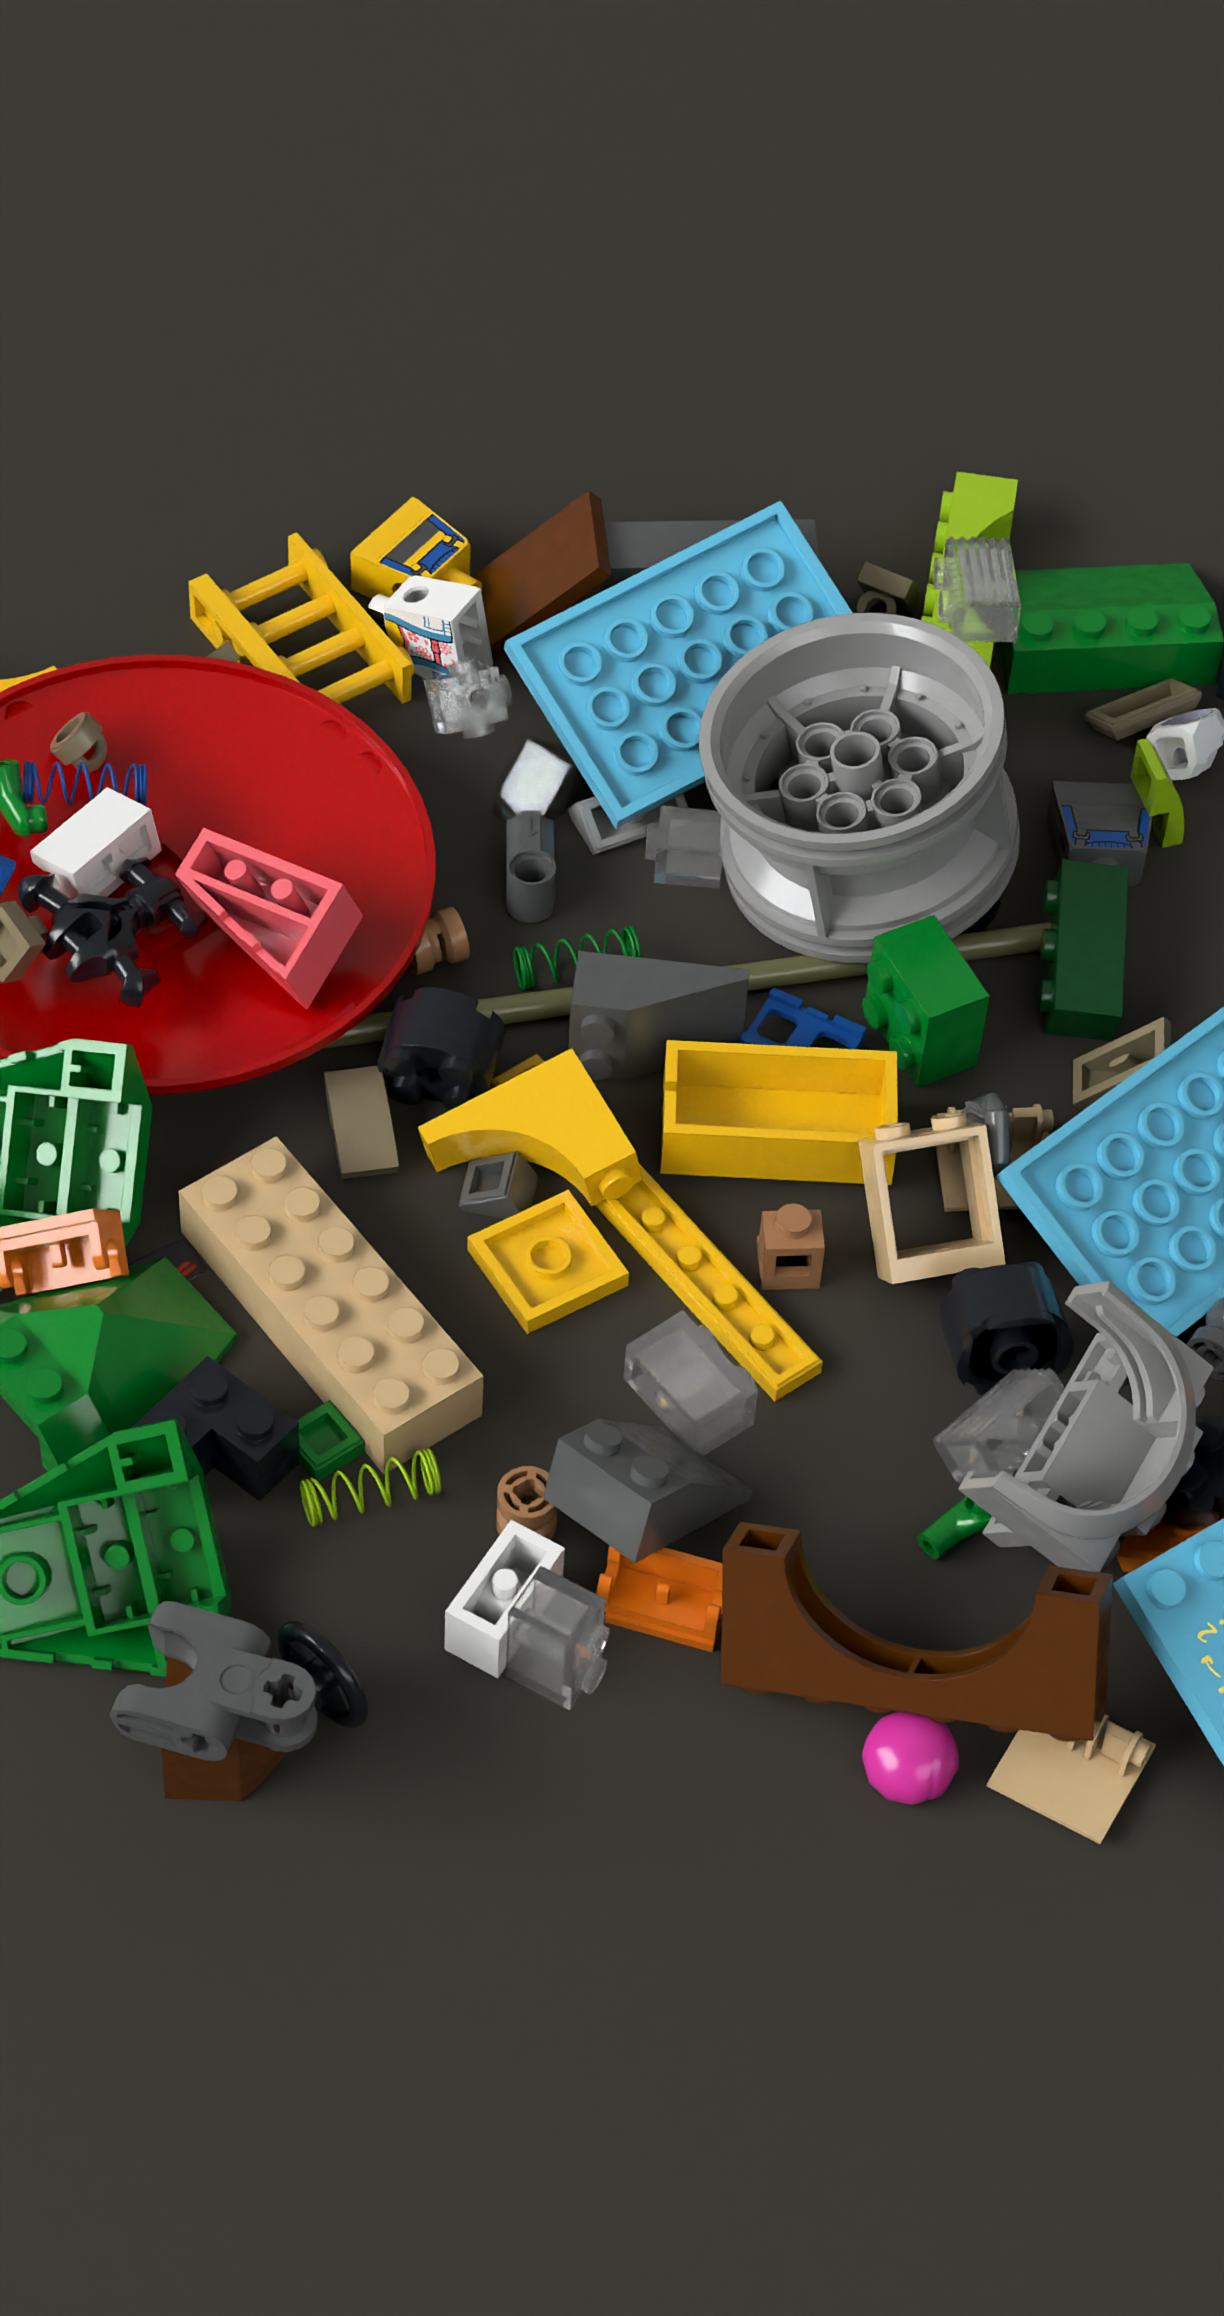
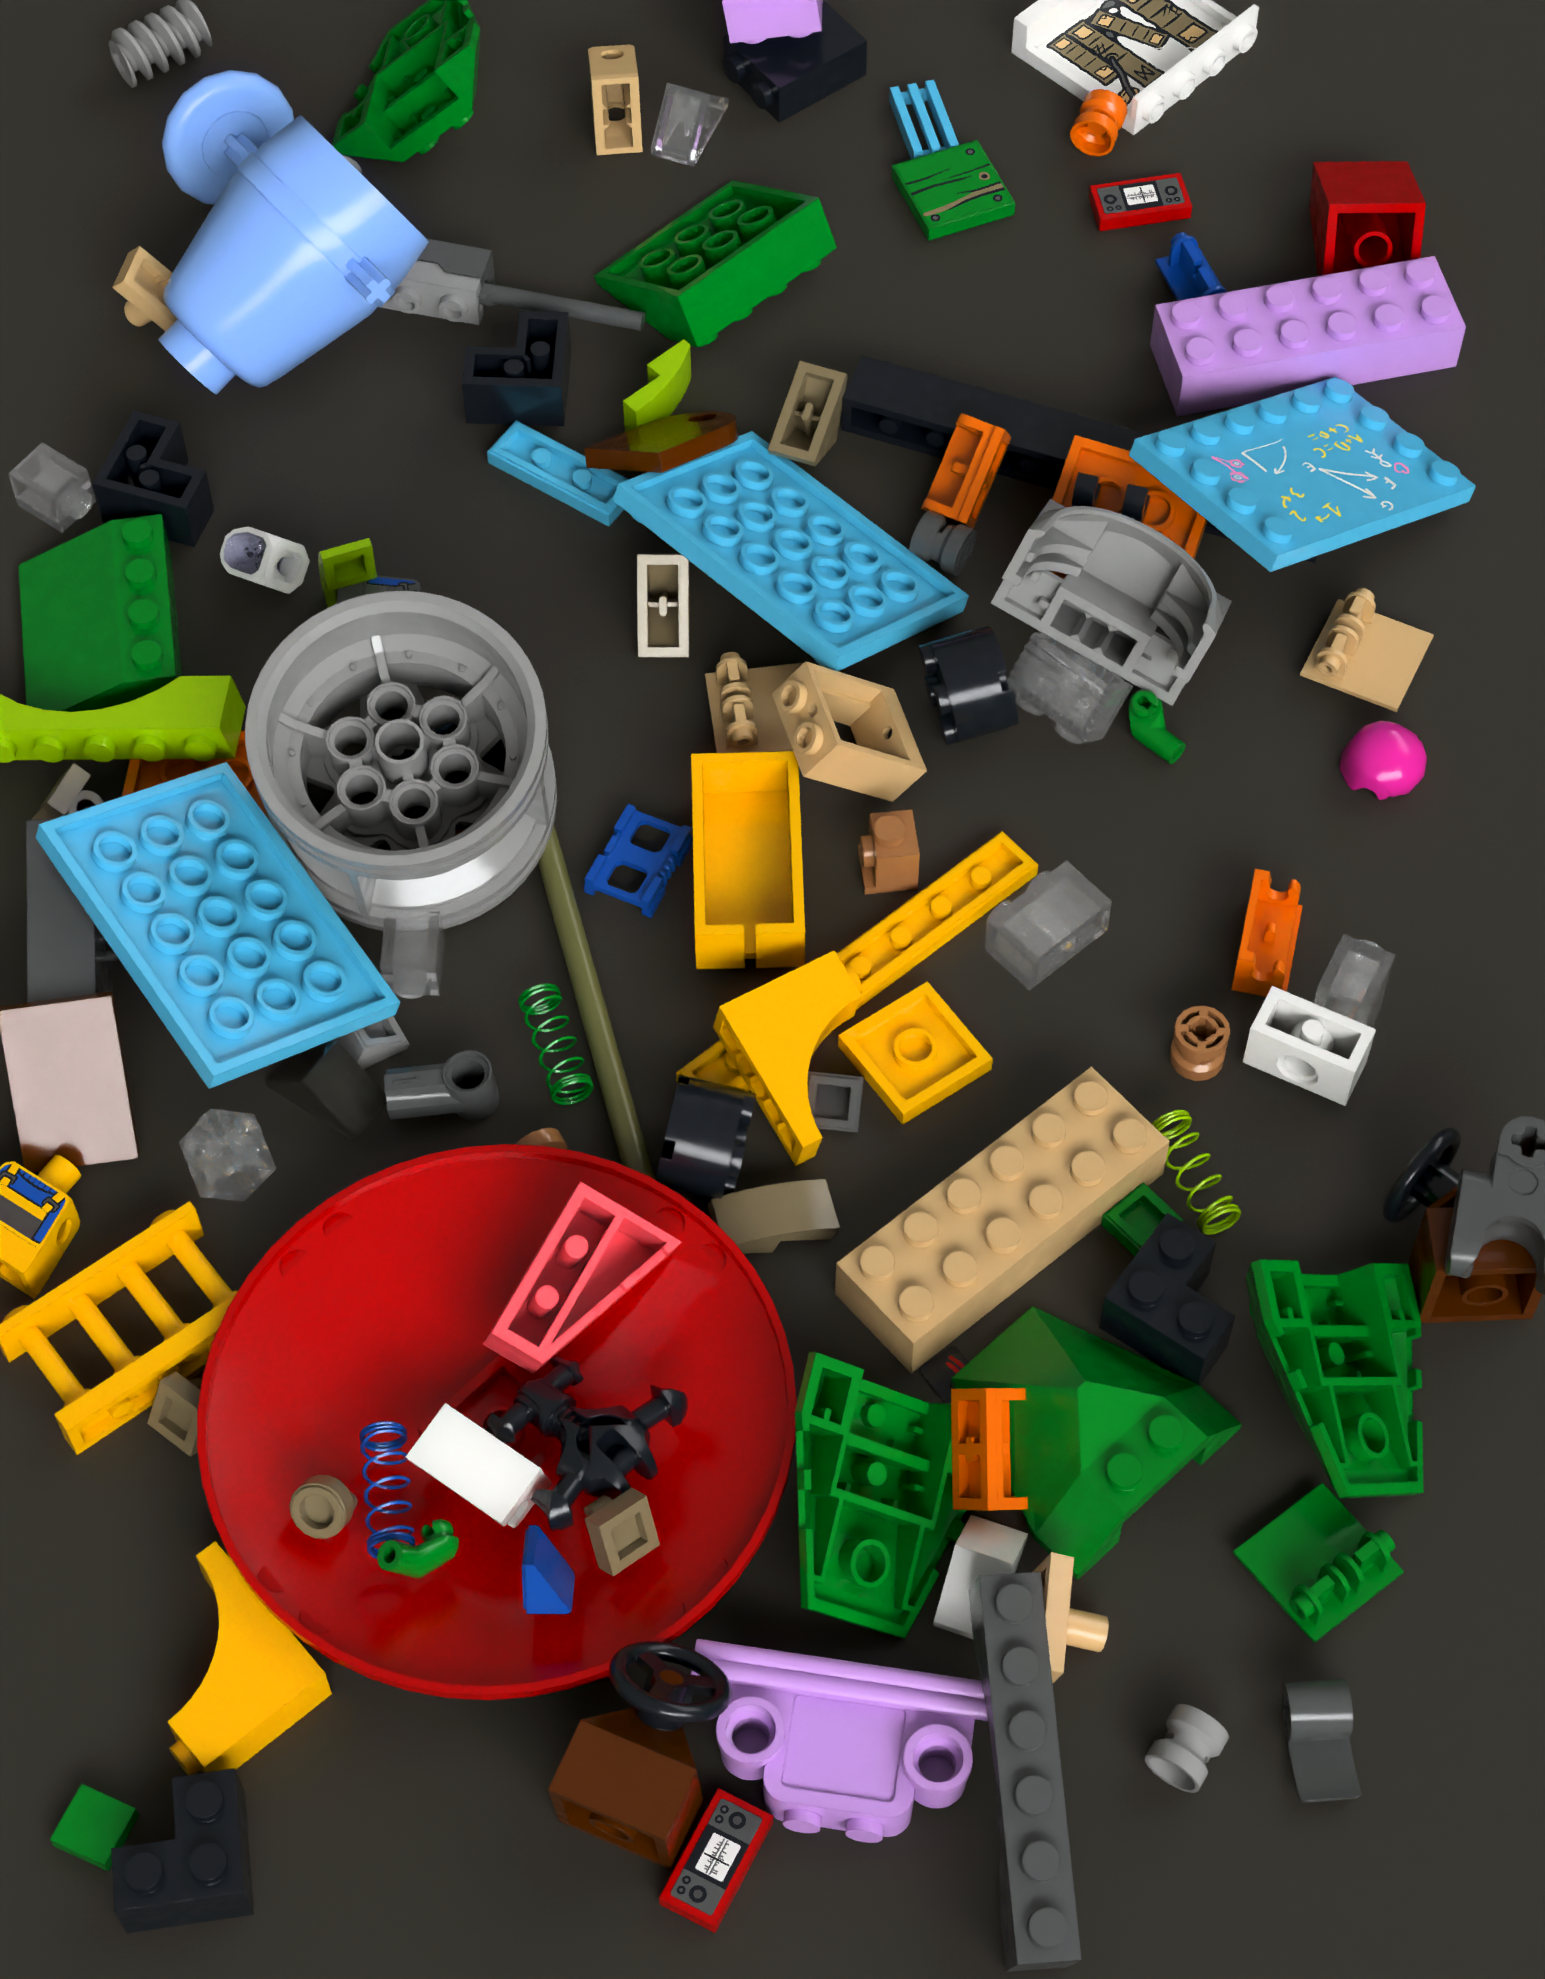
camera: 90 degrees left, 5 degrees up
(435, 623) = (129, 1187): white torso -> none
(633, 1005) = (652, 982): dark grey slope -> none
(638, 1485) = (1187, 936): dark grey slope -> none
(795, 1642) = (1315, 823): reddish brown arch -> none
(925, 1001) = (613, 744): green brick -> none
(978, 589) = (133, 678): clear brick -> none
(993, 1113) = (755, 687): dark grey piece -> none
(1084, 950) = (552, 627): dark green brick -> none
(1143, 709) = (216, 596): dark tan tile -> none

